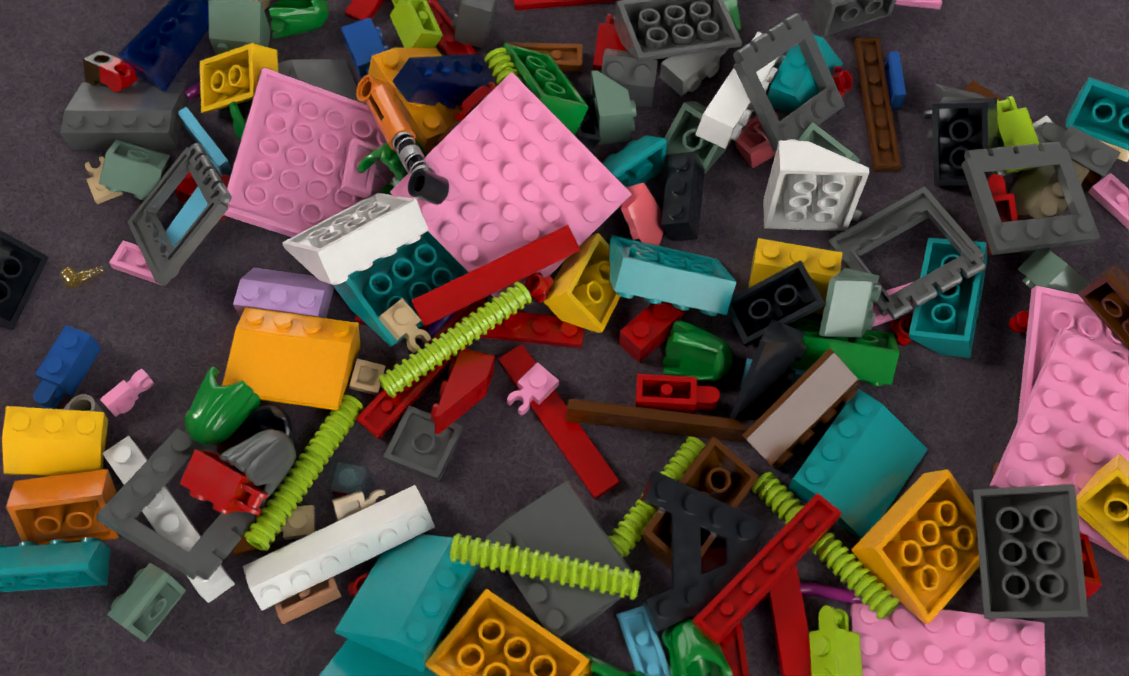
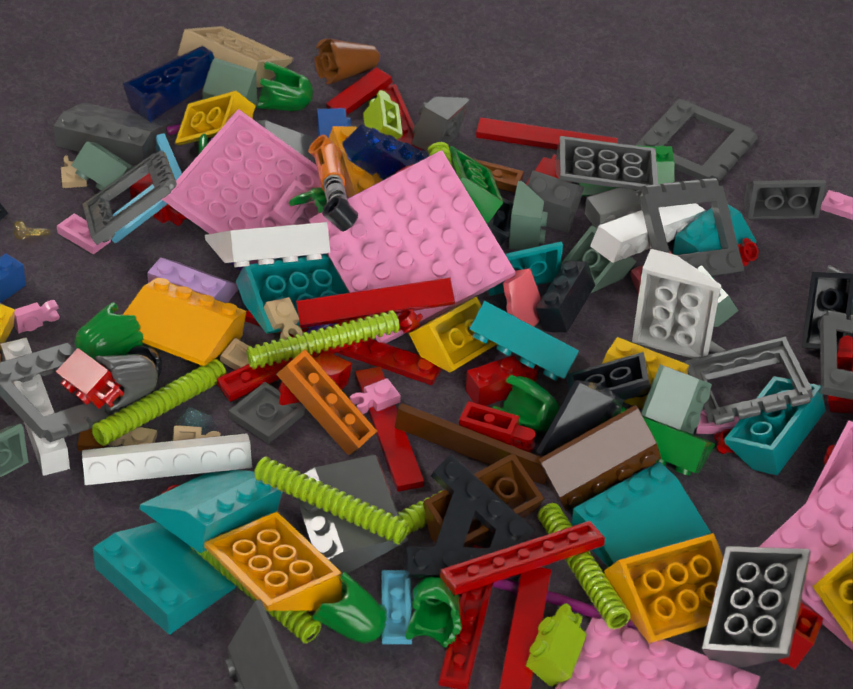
camera: 15 degrees right, 20 degrees down
(109, 71) = (110, 95): red leg -> none
(308, 600) = (116, 490): nougat plate -> none
(490, 426) = (326, 402): none -> orange brick
(877, 105) = (774, 278): reddish brown tile -> none
(895, 80) = (796, 262): blue tile -> none

